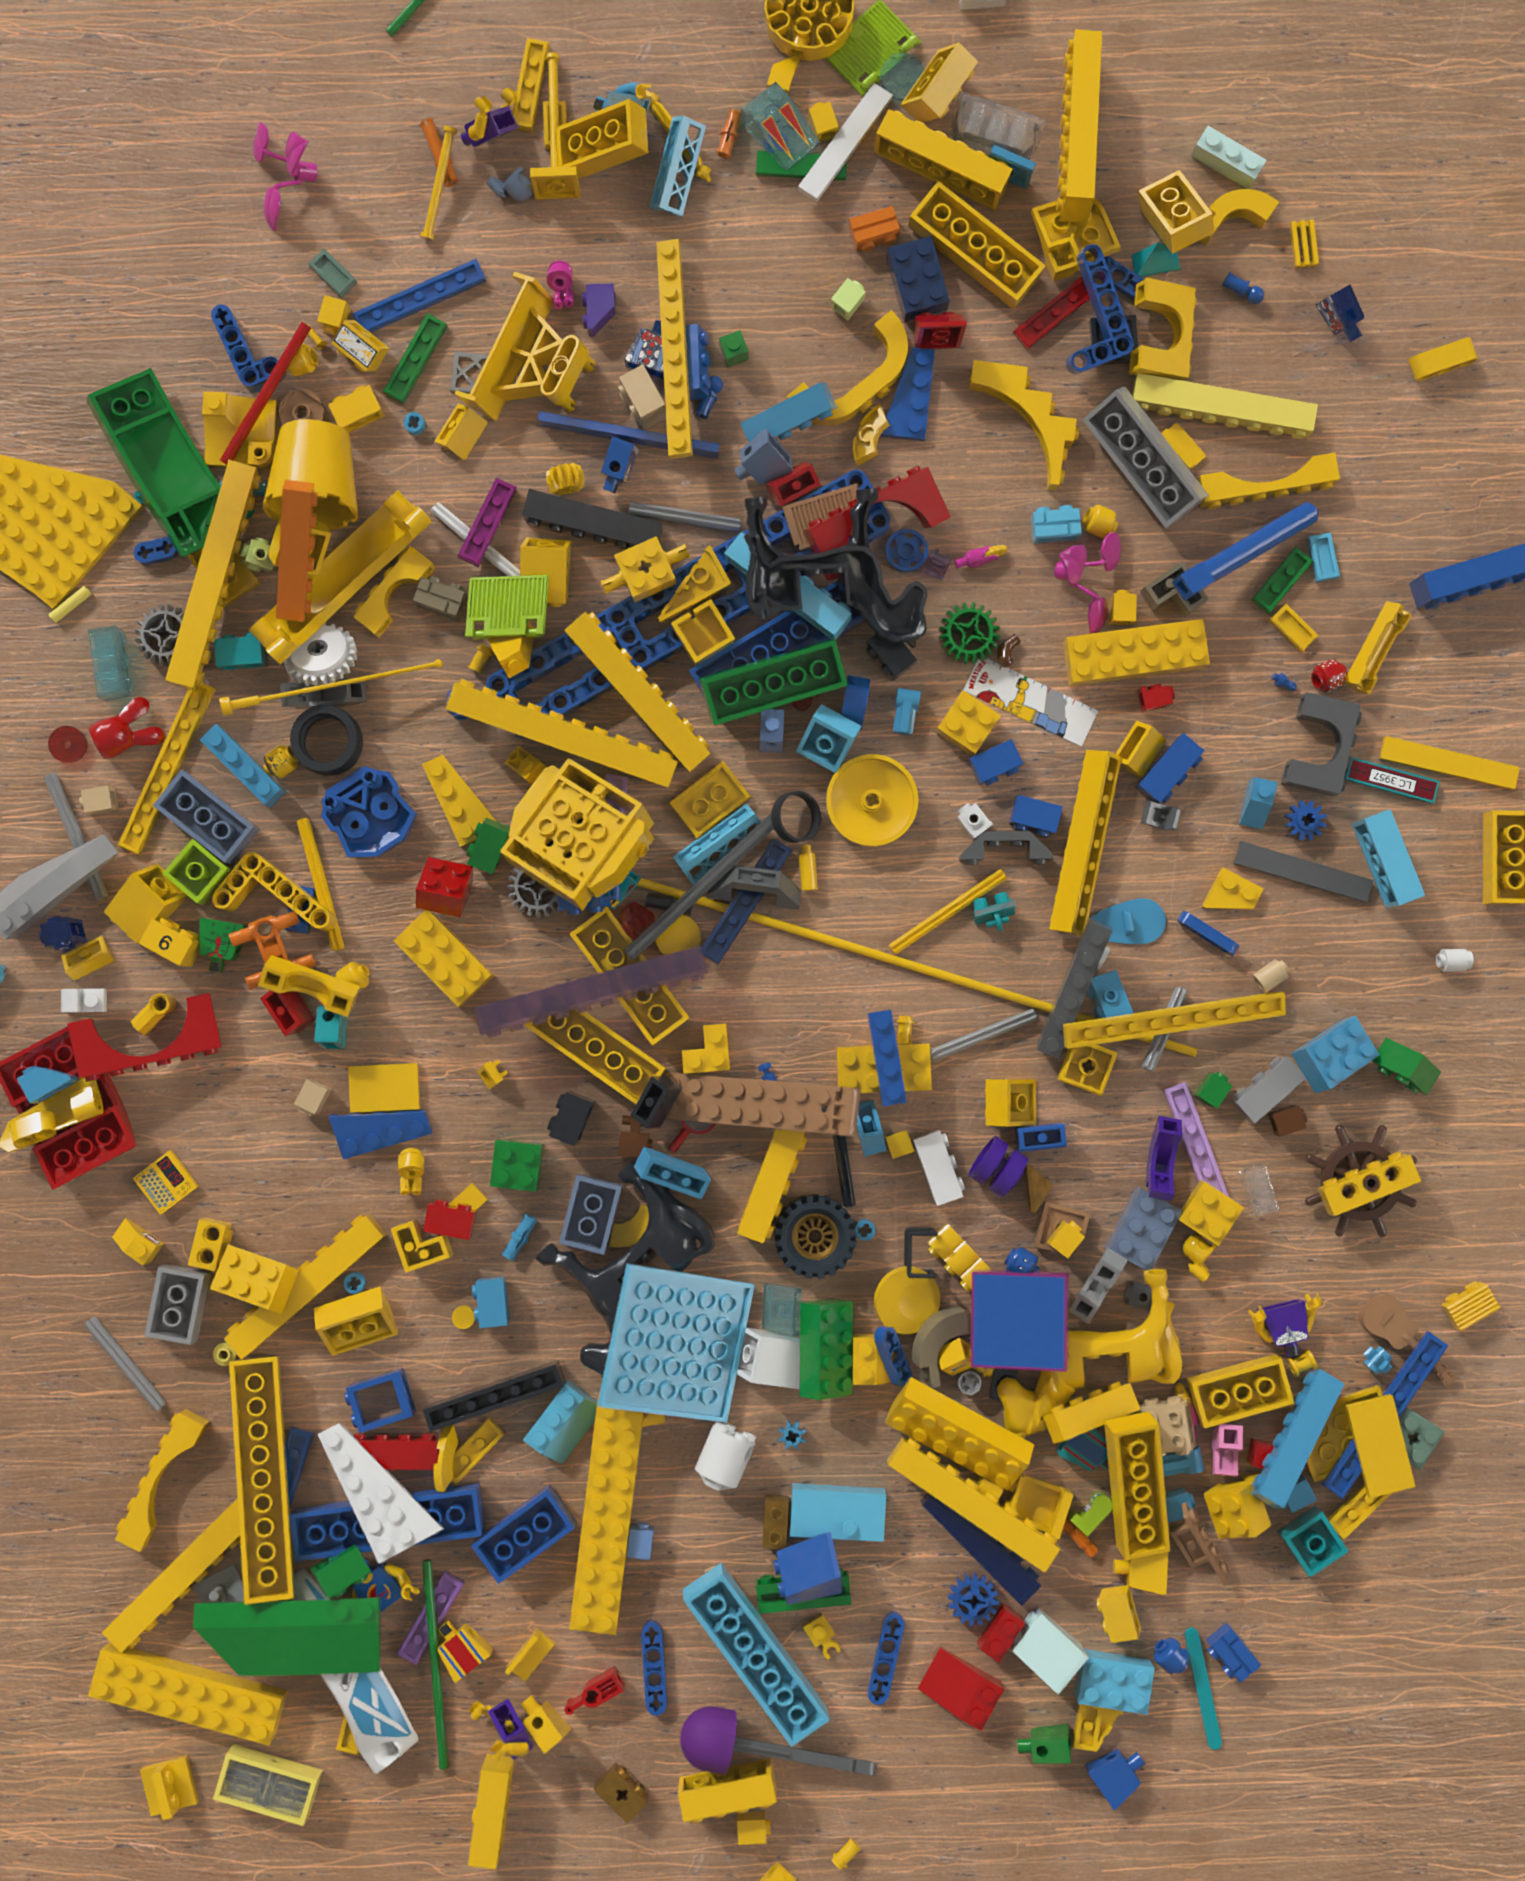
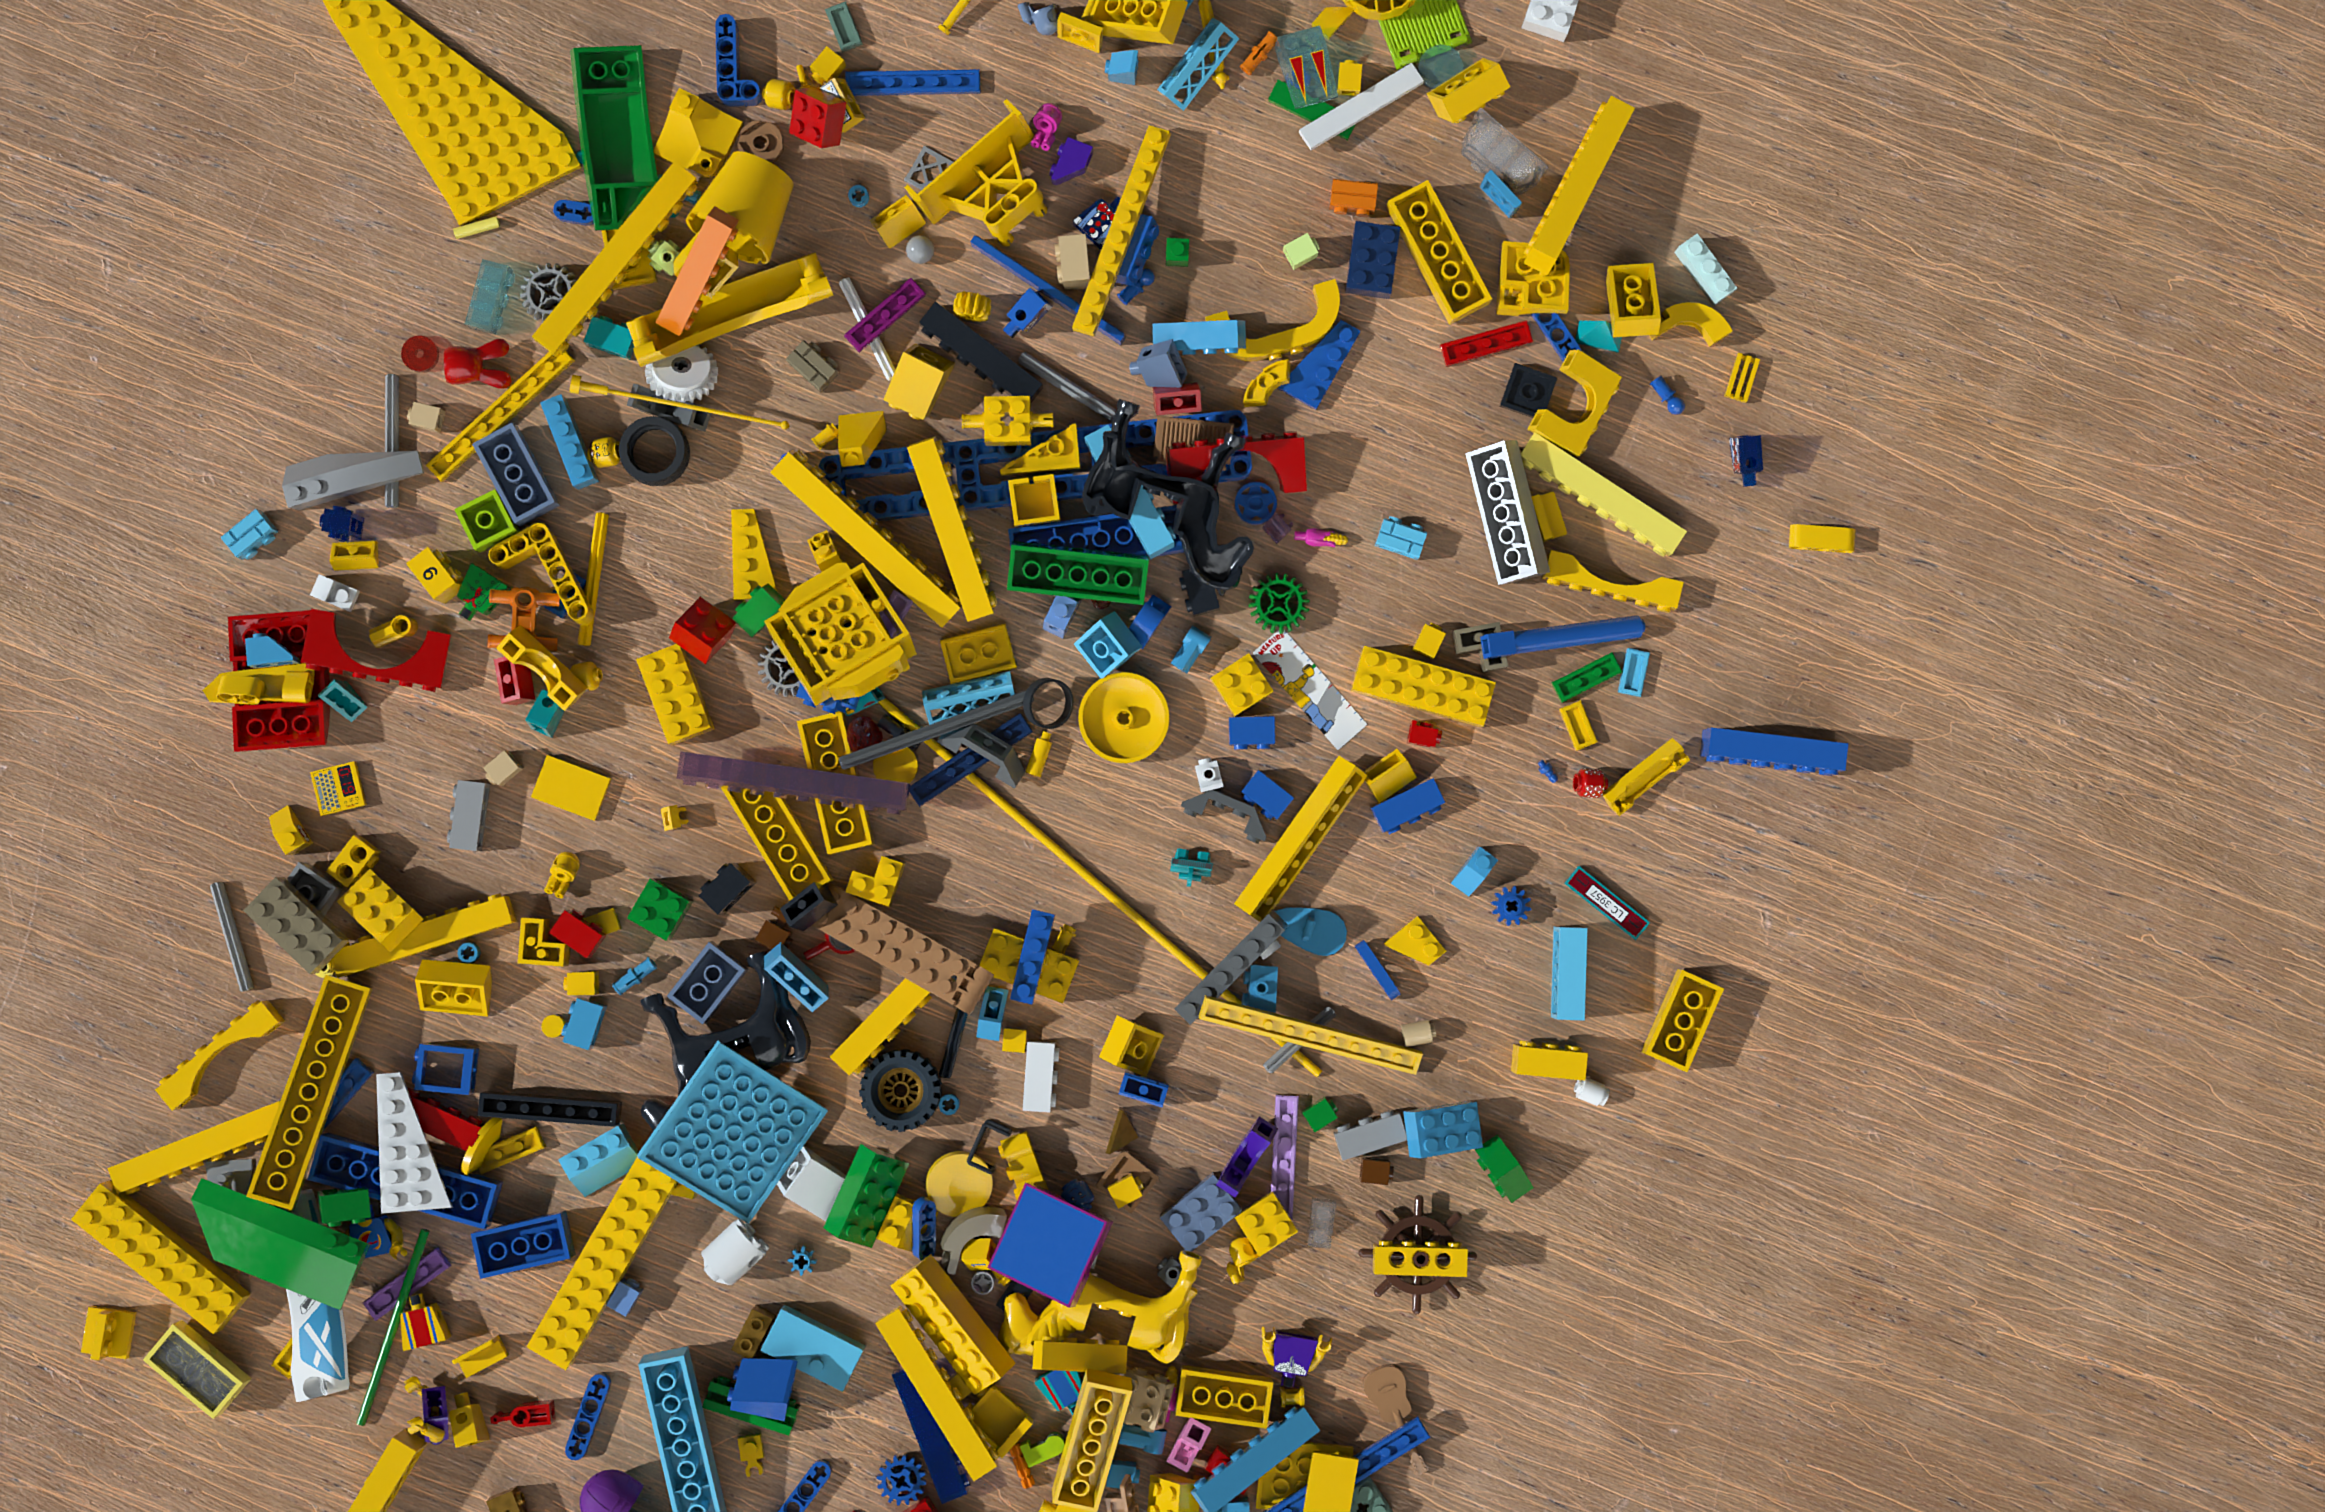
camera: 25 degrees right, 0 degrees up
(134, 1096) = (343, 699): none -> teal slope
(143, 898) = (427, 524): yellow slope -> none
(181, 1327) = (296, 925): none -> dark tan brick
(265, 393) = (734, 113): red piece -> none
(299, 1154) = (468, 815): none -> light grey brick
(345, 363) = (817, 117): none -> red brick
(356, 409) = (810, 162): yellow brick -> none
(370, 1132) = (539, 822): blue wing -> none
(378, 828) = (666, 551): blue brick -> none
(409, 569) = (748, 353): yellow arch -> none
(415, 358) = (885, 137): green tile -> none
(473, 1265) = (582, 983): none -> yellow brick
(493, 448) = (920, 249): none -> light grey piece
(507, 605) = (868, 400): lime window -> none
(609, 198) = (1123, 67): none -> dark azure slope
(630, 1231) = (736, 1013): yellow tile -> none
(767, 1075) = (922, 928): blue piece -> none
(781, 1309) = (841, 1142): clear light blue tile -> none
(939, 331) = (1370, 315): red slope -> none
(942, 159) = (1441, 160): yellow brick -> none
(947, 911) = (1149, 848): yellow axle -> none
(983, 1034) = (1140, 974): light grey axle -> none
(1004, 1171) = (1096, 1105): dark purple wheel -> none
(1005, 650) = (1305, 633): reddish brown arm -> none
(1011, 385) = (1436, 453): yellow arch -> none
(1071, 569) = (1395, 586): dark pink plant -> none
(1093, 1080) = (1214, 1058): yellow brick -> none
(1098, 1285) = (1136, 1245): light grey arch -> none
(1100, 521) = (1443, 552): yellow head -> none
(1102, 313) = (1525, 366): blue beam -> none
(1160, 816) = (1380, 845): dark grey bracket -> none
(1303, 871) = (1489, 951): dark grey tile -> none
(1341, 720) = (1584, 828): dark grey arch -> none
(1377, 1360) = (1361, 1423): dark azure gear -> none
(1405, 948) = (1549, 1060): none -> yellow brick
(1449, 763) = (1666, 909): yellow tile -> none
(1470, 1305) = (1467, 1410): yellow brick -> none

